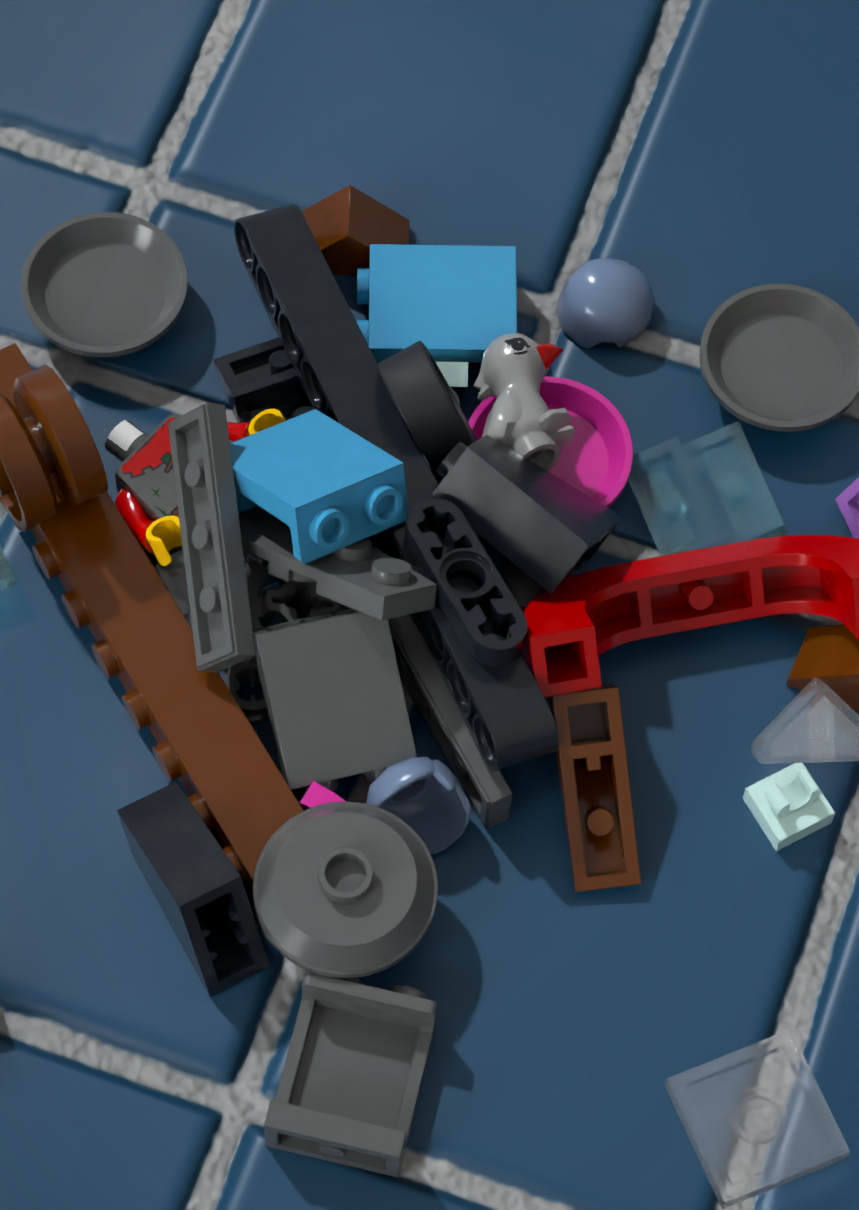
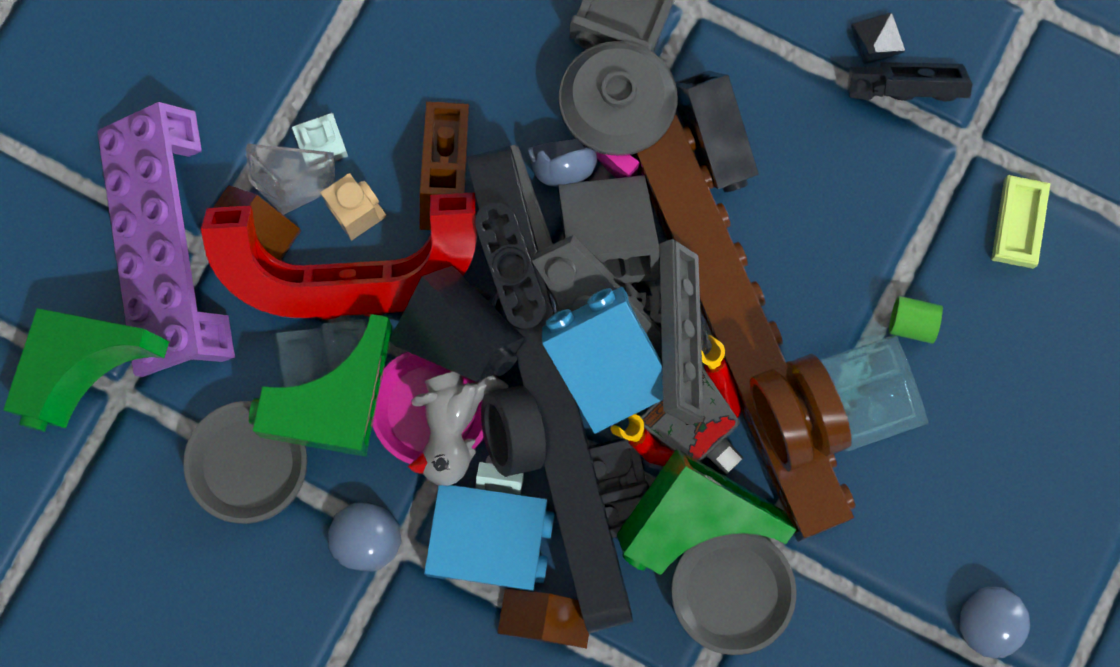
camera: 170 degrees left, 15 degrees up
(163, 362) = (692, 506): none -> green arch
(682, 408) = (334, 409): none -> green arch
(716, 704) = (353, 205): none -> tan brick

